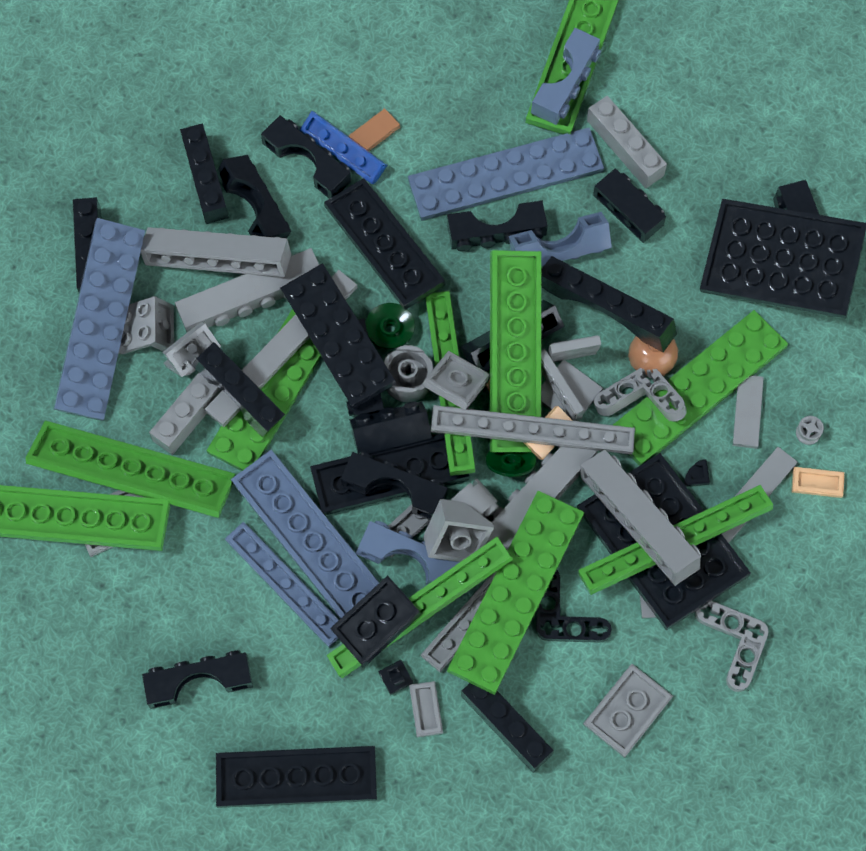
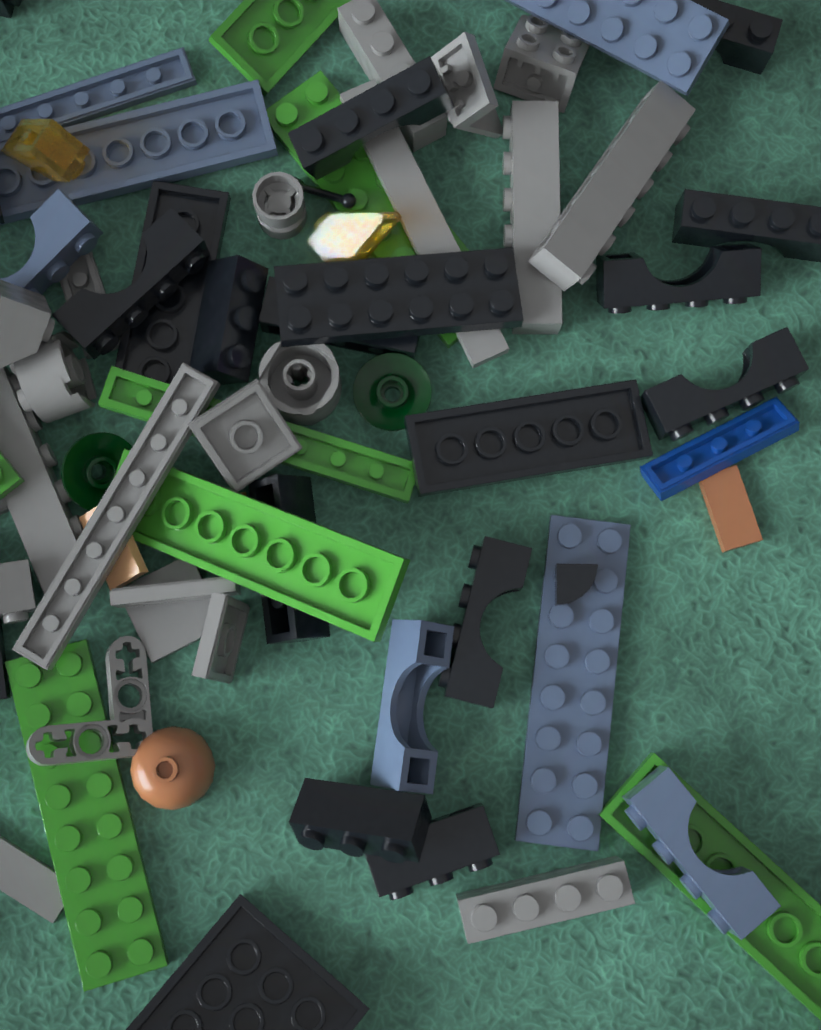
camera: 110 degrees right, 10 degrees up
(285, 435) = (348, 200): none -> black hinge
(306, 431) = (279, 205): none -> light grey wheel
(308, 381) = (351, 234): none -> clear yellow slope
(333, 576) = (47, 149): none -> clear yellow slope
(455, 188) = (573, 581): none -> black tile
(632, 238) = (361, 820): none -> black brick
(639, 318) = (262, 724): black arch -> none

